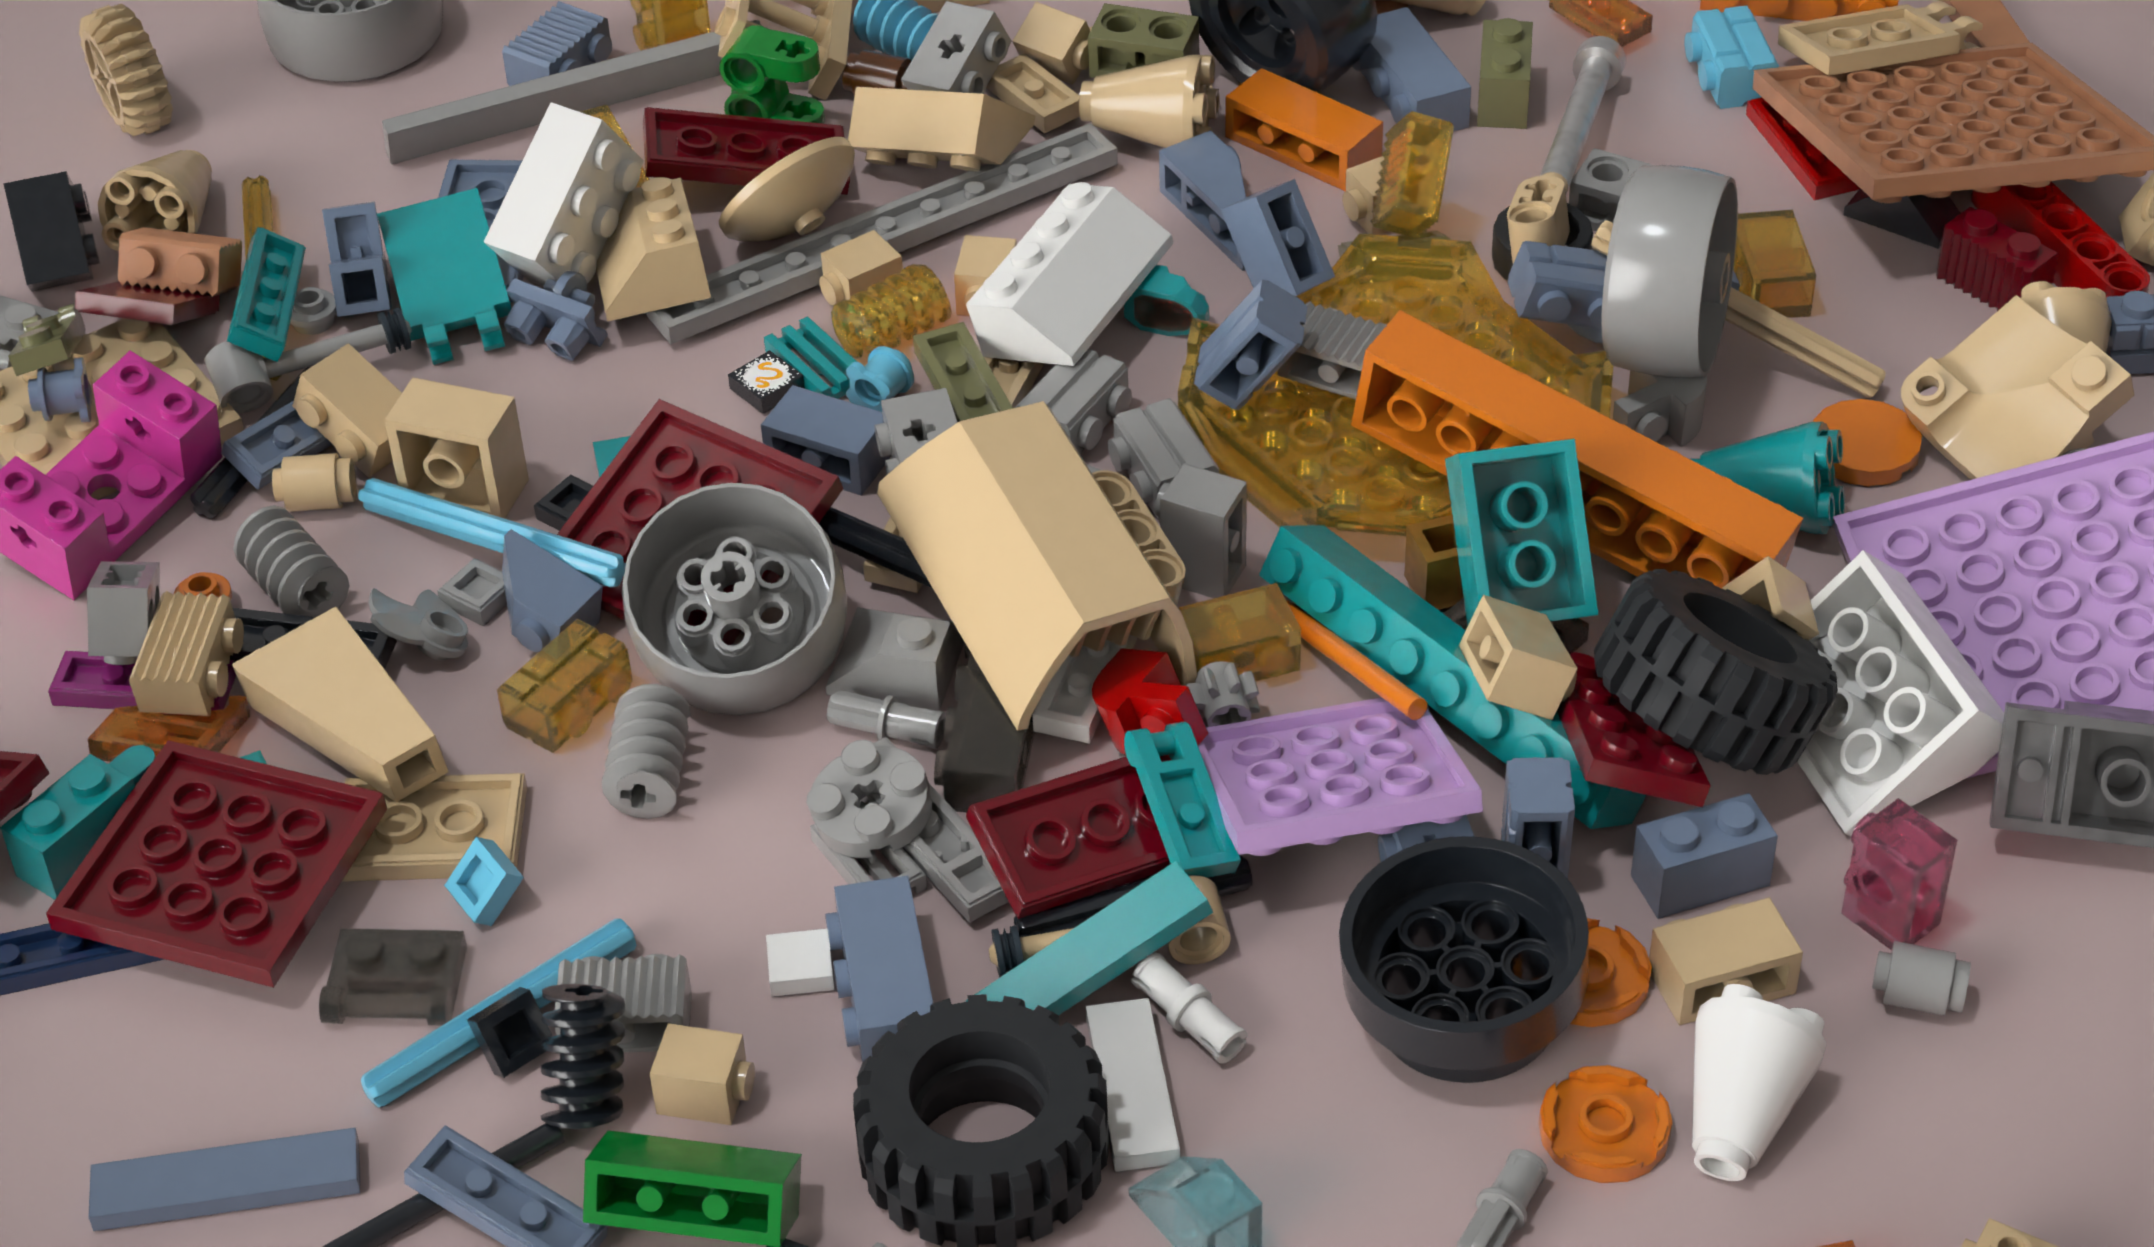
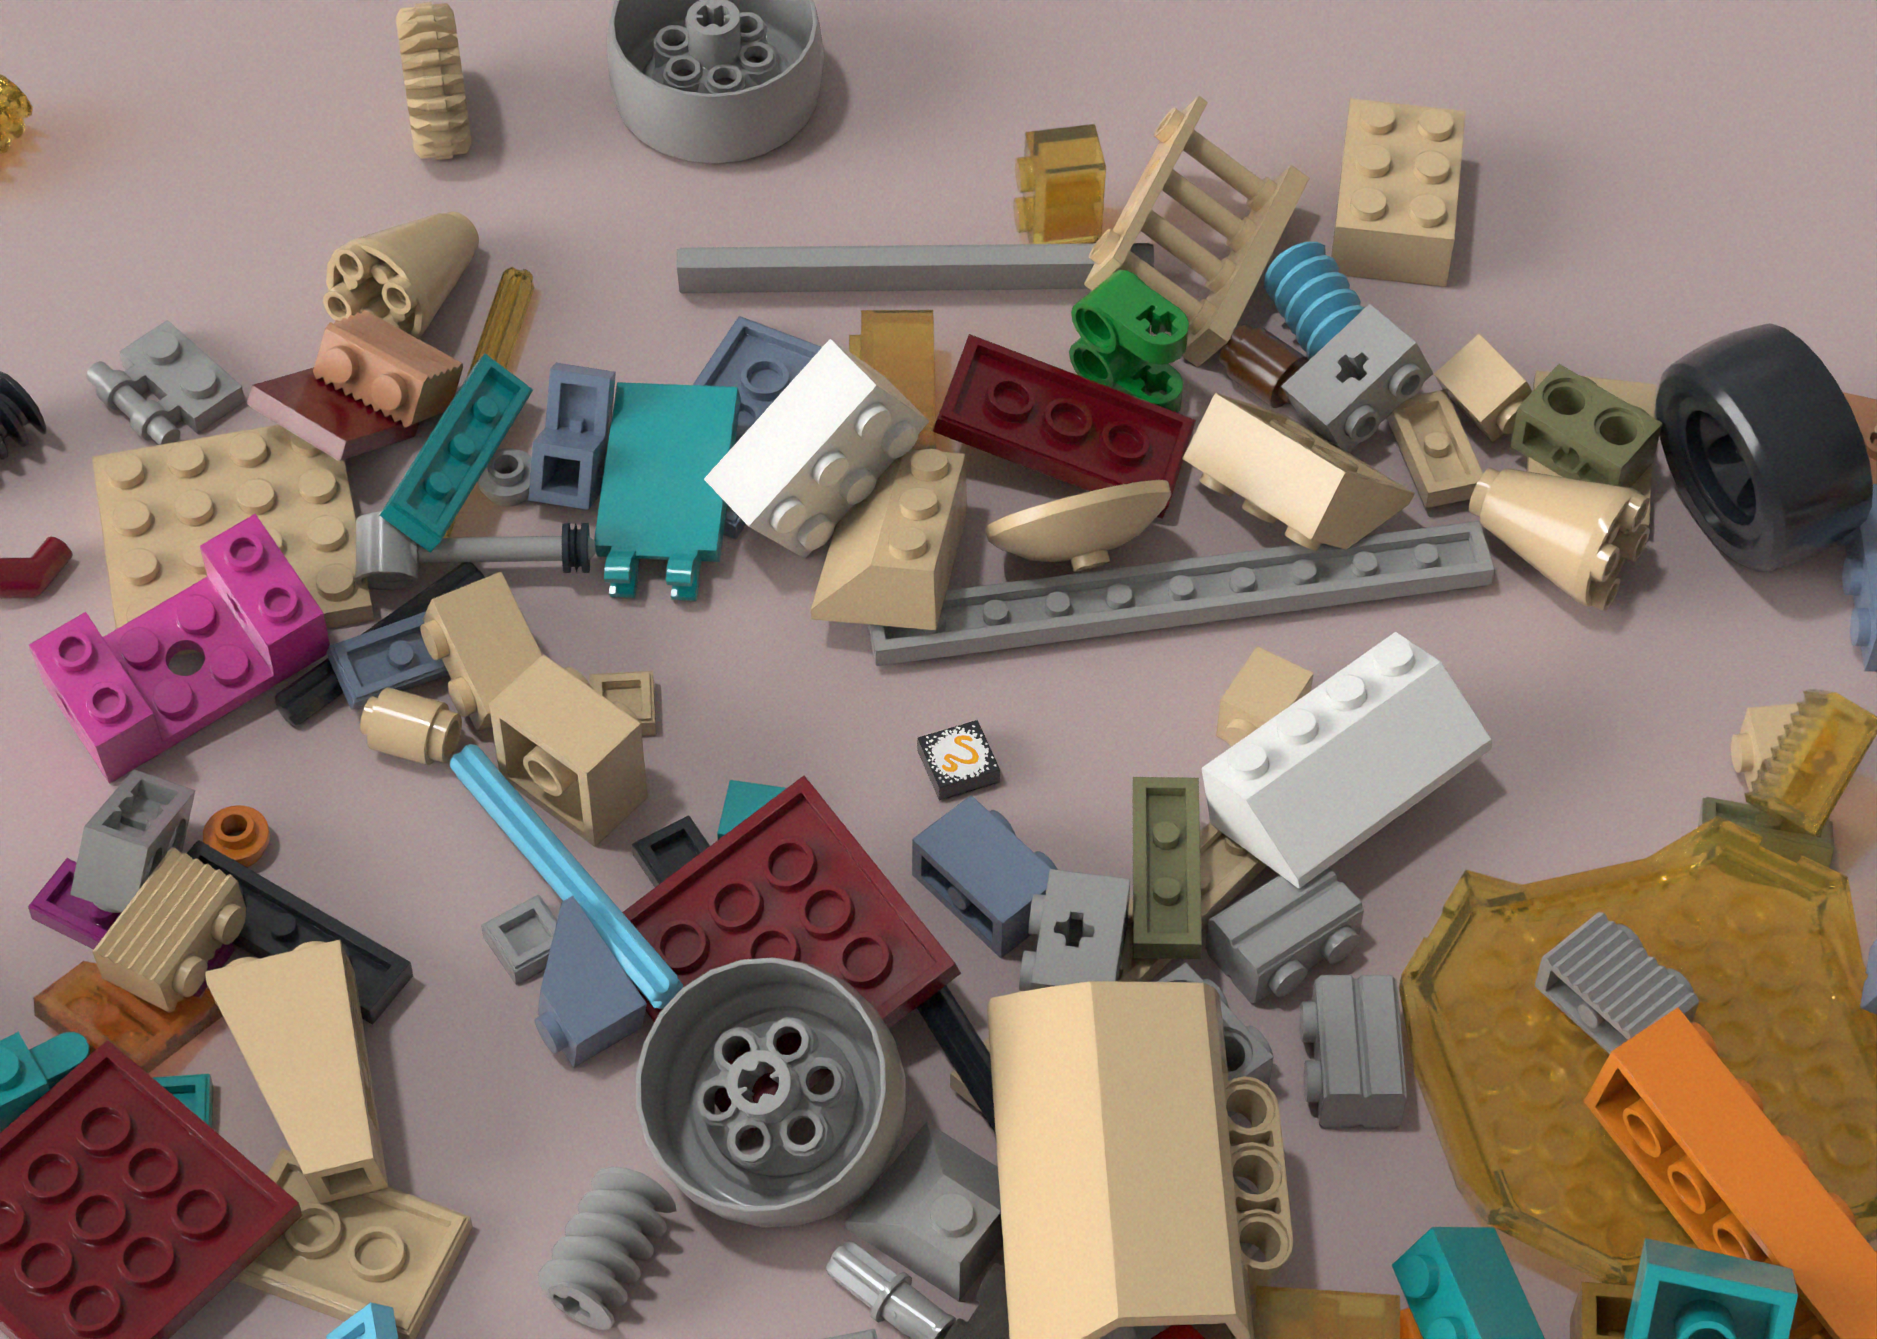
camera: 20 degrees right, 10 degrees up
(47, 340) = (198, 442): olive plate -> none
(50, 230) = (266, 280): black brick -> none
(62, 392) = (187, 514): sand blue brick -> none
(289, 563) = (336, 836): light grey piece -> none
(427, 623) = (441, 969): light grey plate -> none
(557, 43) = (919, 199): sand blue brick -> none
(559, 306) = (774, 606): sand blue hips -> none
(565, 686) = (560, 1117): clear yellow brick -> none
(821, 351) = (1014, 709): teal tile -> none
(857, 266) = (1123, 651): tan brick -> none
(880, 379) = (1082, 810): medium azure brick -> none
(891, 311) = (1134, 717): clear yellow piece -> none
(1165, 304) = (1459, 822): rock -> none
(1200, 180) = (1578, 659): sand blue slope -> none
(1206, 526) = (1346, 1185): light grey brick -> none
(1251, 344) = (1504, 955): sand blue brick -> none
(1278, 239) = (1613, 795): sand blue brick -> none
(1301, 127) = (1731, 616): orange brick -> none

